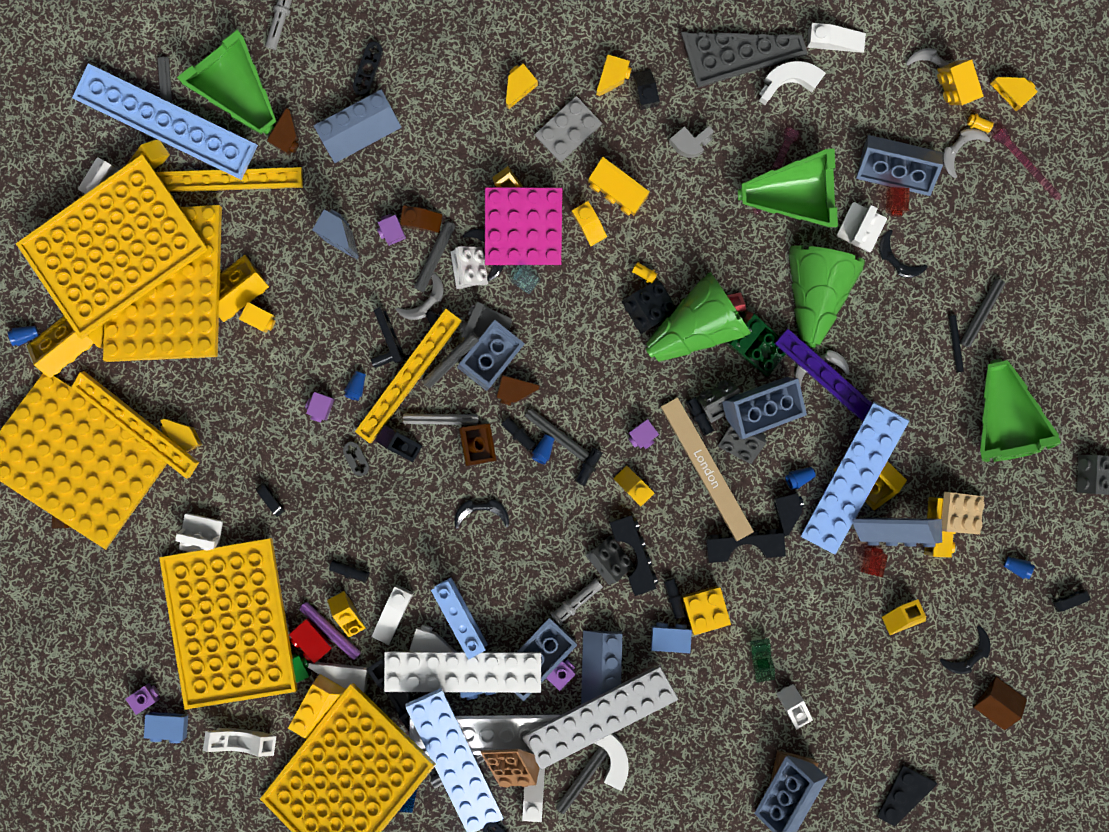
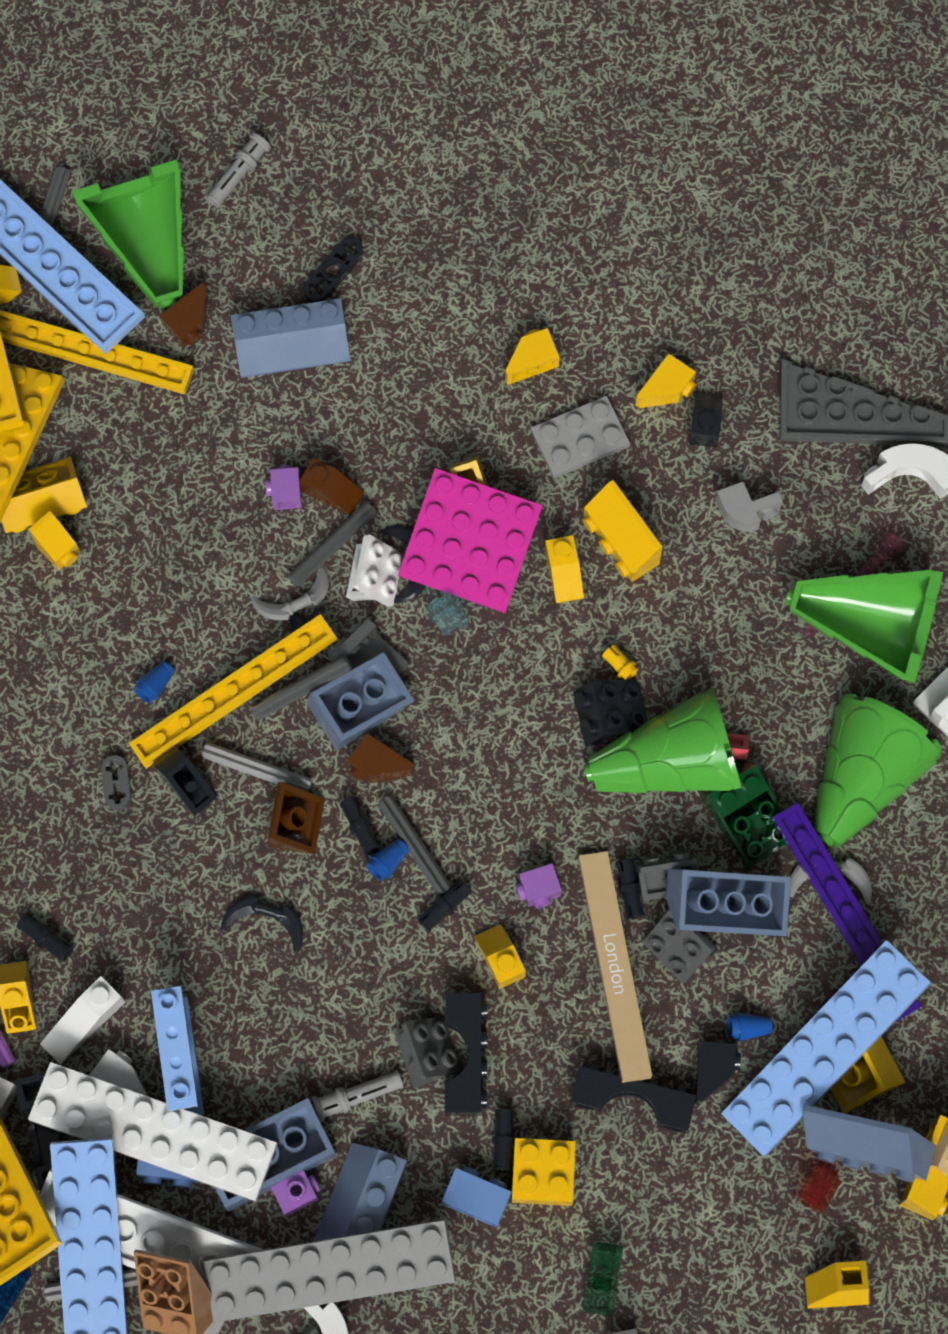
camera: 15 degrees right, 15 degrees down
(319, 407) = (92, 692): medium lavender brick -> none
(335, 231) = (206, 459): sand blue slope -> none
(395, 351) = (228, 654): black piece -> none

